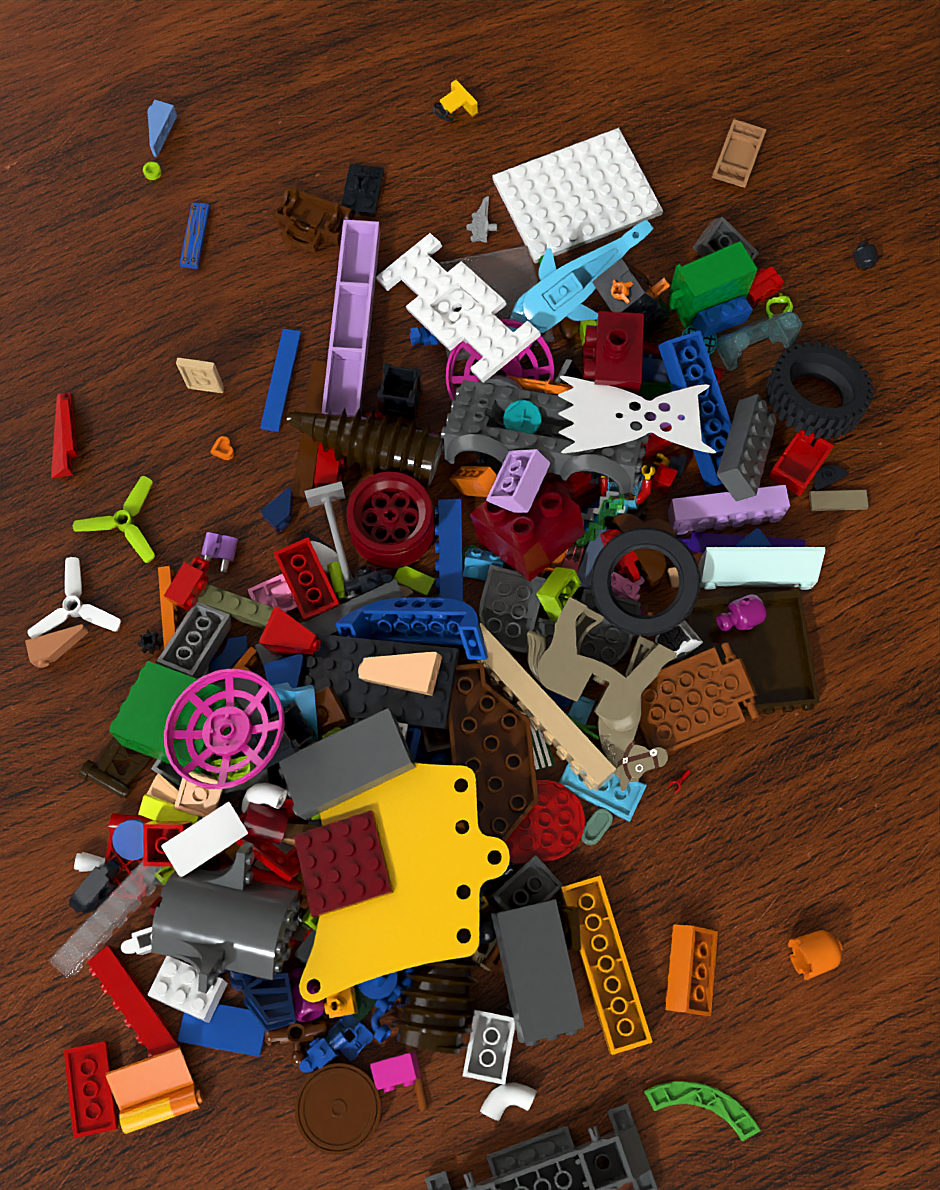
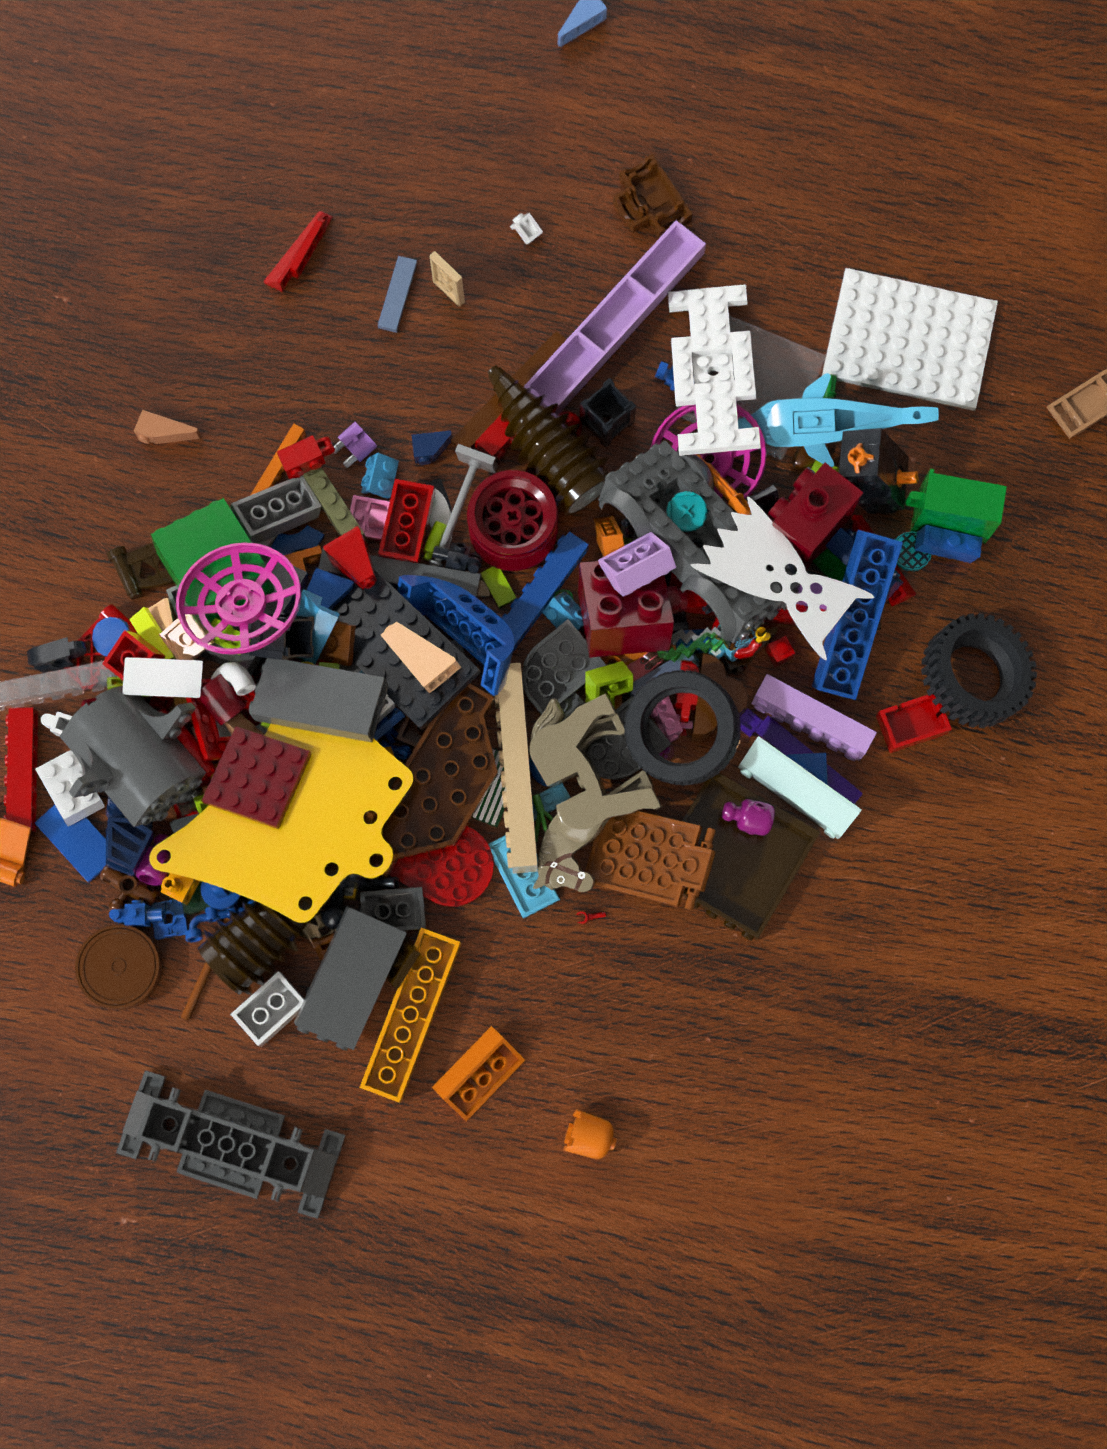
camera: 35 degrees right, 5 degrees up
(73, 591) = (210, 395): white piece -> none
(87, 862) = (64, 628): white cone -> none
(130, 509) = (307, 356): lime piece -> none
(150, 647) = (237, 485): black gear -> none
(152, 170) = (546, 57): lime tile -> none
(167, 415) = (397, 294): none -> sand blue tile
(194, 235) = (539, 144): blue tile -> none
(222, 448) = (423, 356): orange tile -> none
(231, 300) = (526, 227): none -> white bracket
(256, 560) = (379, 475): none -> dark azure bracket
(280, 380) = (517, 329): blue tile -> none
(362, 189) = (718, 201): black plate -> none
(396, 1071) = (184, 972): dark pink brick -> none
(454, 100) = (863, 173): yellow piece -> none
(480, 223) = (798, 308): light grey piece -> none
(507, 1095) = (254, 1056): white cylinder -> none
(596, 826) = (492, 902): sand green tile -> none
(675, 463) = (799, 645): black piece -> none
(680, 640) = (679, 799): torso -> none
(704, 1096) = (411, 1178): bright green tile -> none
(721, 235) = (1007, 470): dark grey slope -> none
(746, 448) = (868, 675): dark grey brick -> none
(764, 285) = (1010, 540): red brick -> none
(778, 327) = (991, 584): clear light blue windscreen -> none
(781, 299) = (1017, 564): lime piece -> none
(827, 476) = (929, 753): black plate -> none
(838, 500) = (922, 781): dark tan tile -> none

